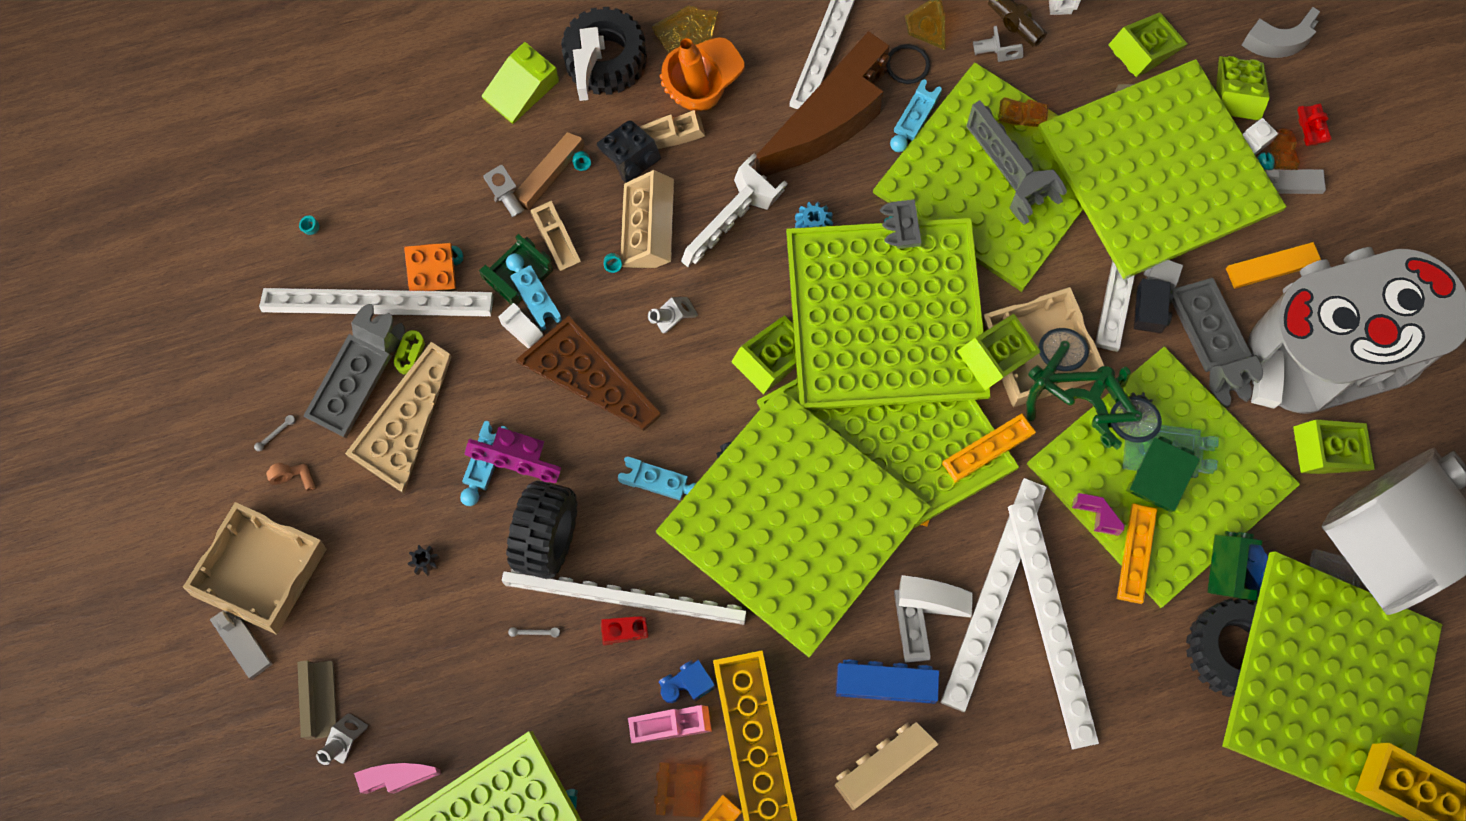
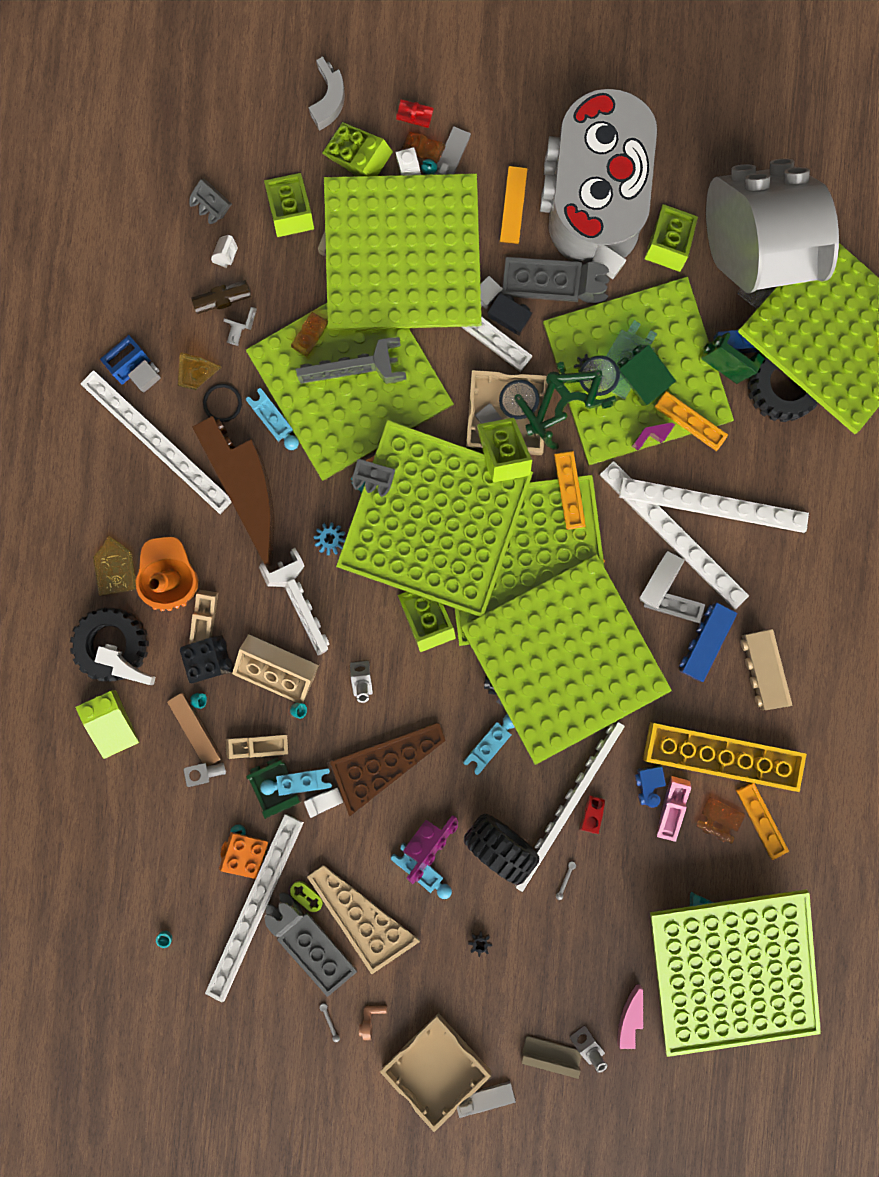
camera: 75 degrees left, 15 degrees up
(1031, 326) = (487, 414): none -> light grey tile

